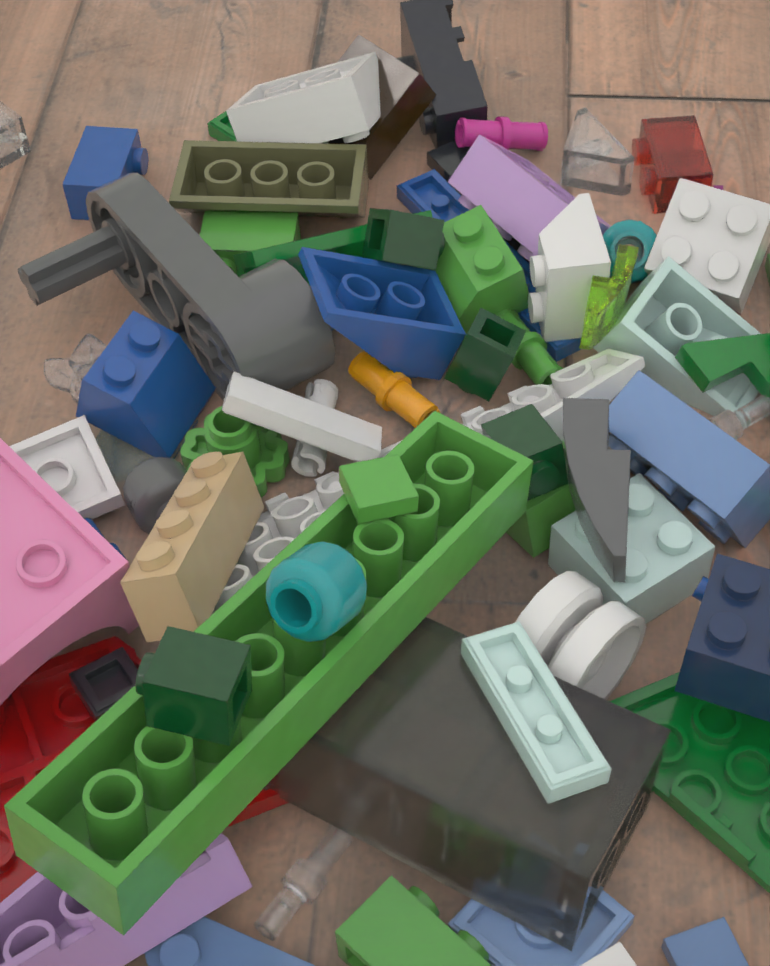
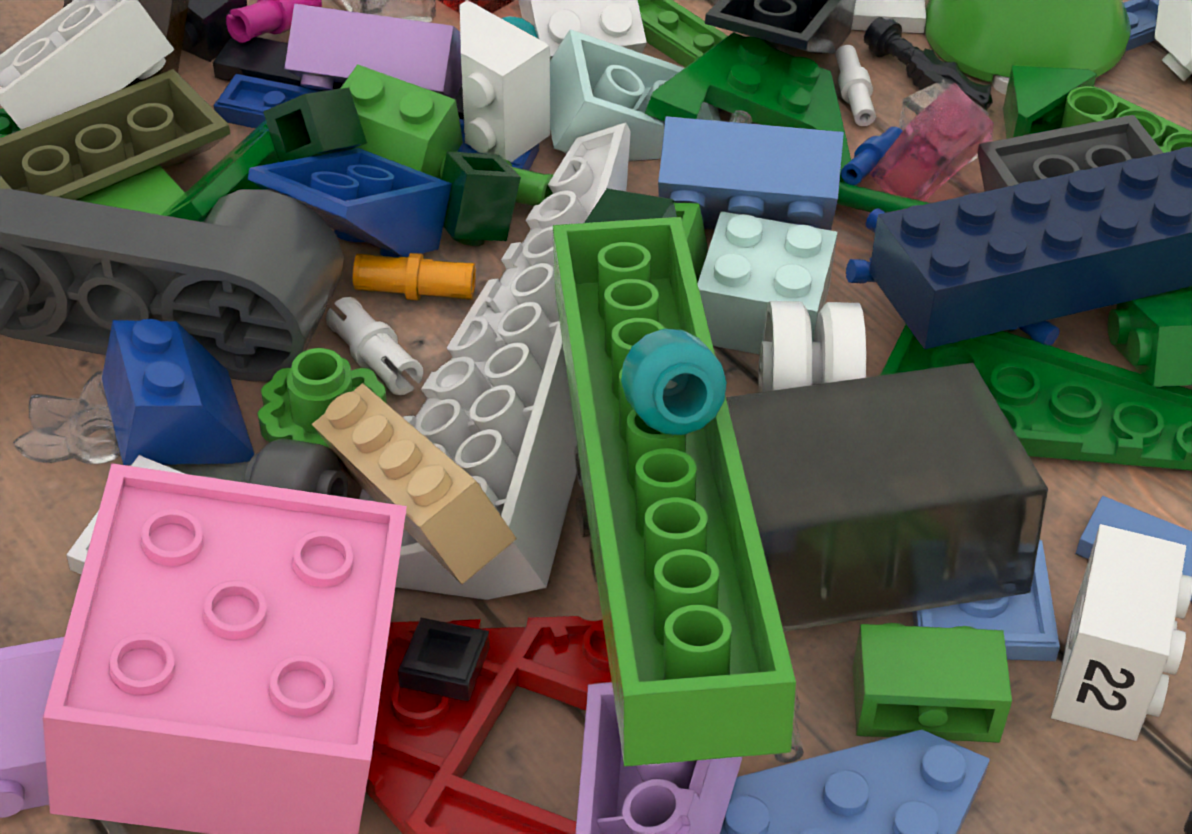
camera: 45 degrees left, 5 degrees down
(195, 685) = (676, 499): dark green brick -> none
(302, 419) = (378, 331): white tile -> none
(378, 488) = (599, 296): bright green tile -> none
(535, 712) = (871, 406): light aqua tile -> none
(597, 481) = (728, 223): dark grey slope -> none
(608, 298) = (556, 89): clear neon green slope -> none

